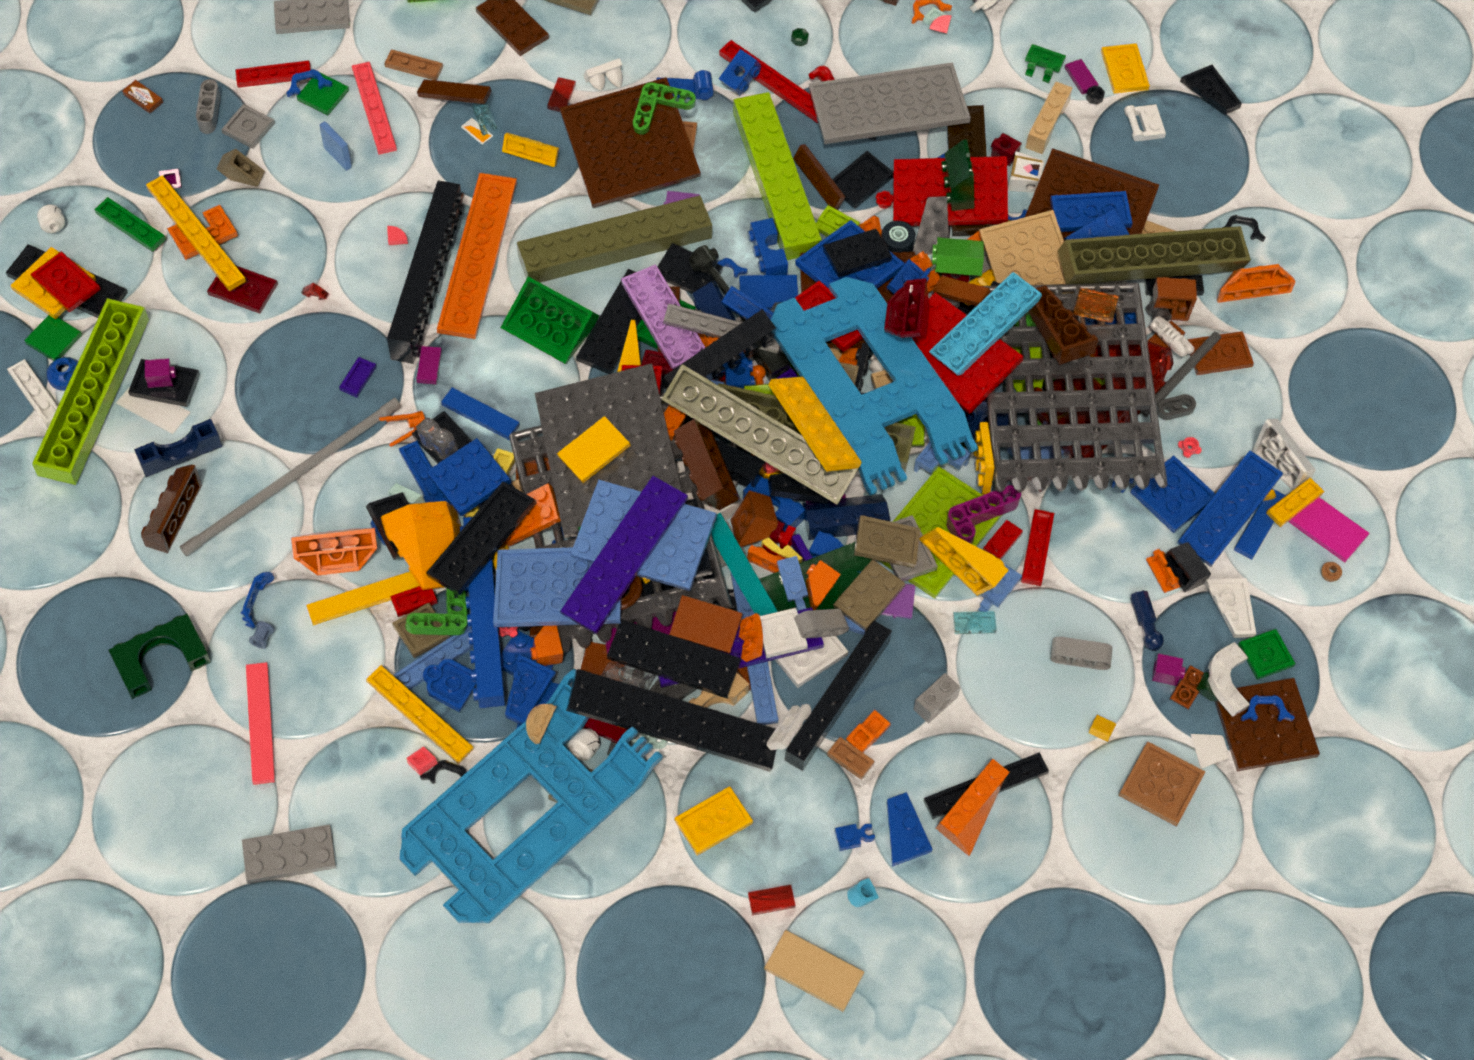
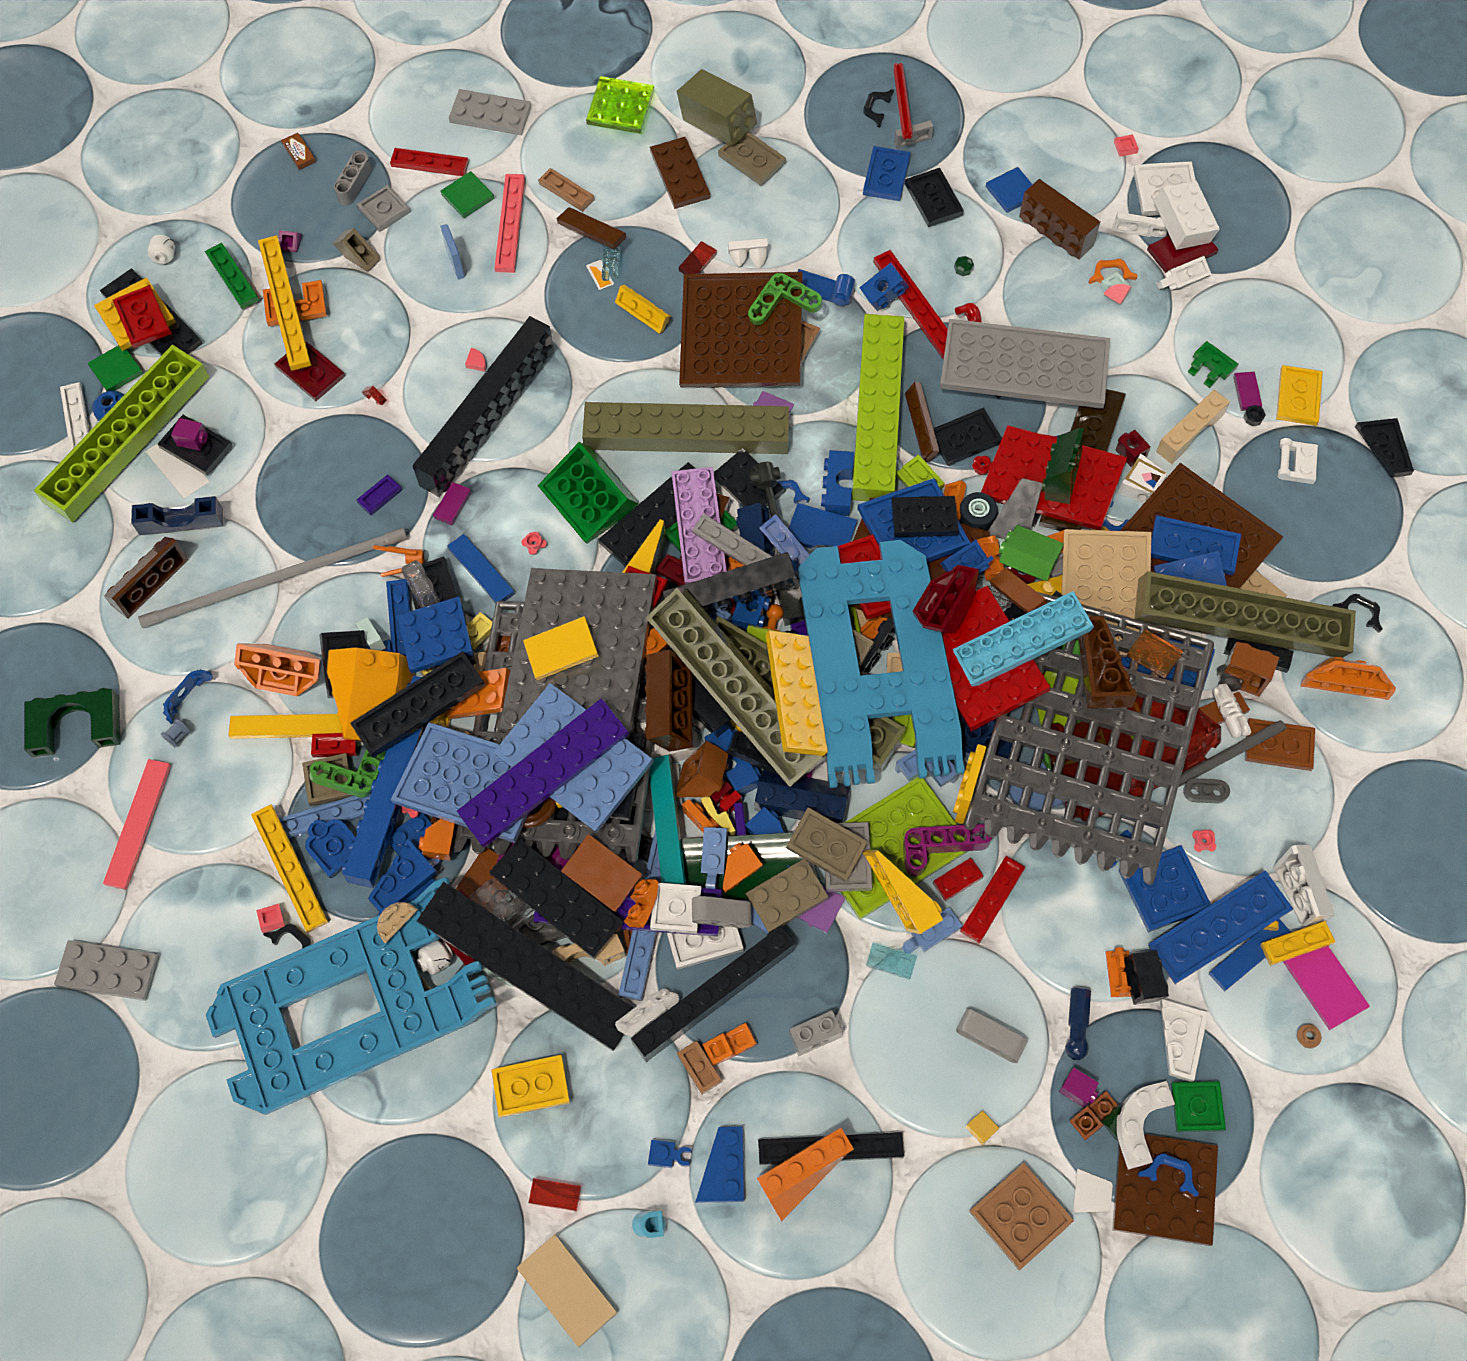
camera: 25 degrees right, 5 degrees up
(306, 75) = (446, 172): blue helmet -> none
(477, 256) = (544, 404): orange plate -> none
(518, 371) = (533, 537): none -> coral plate

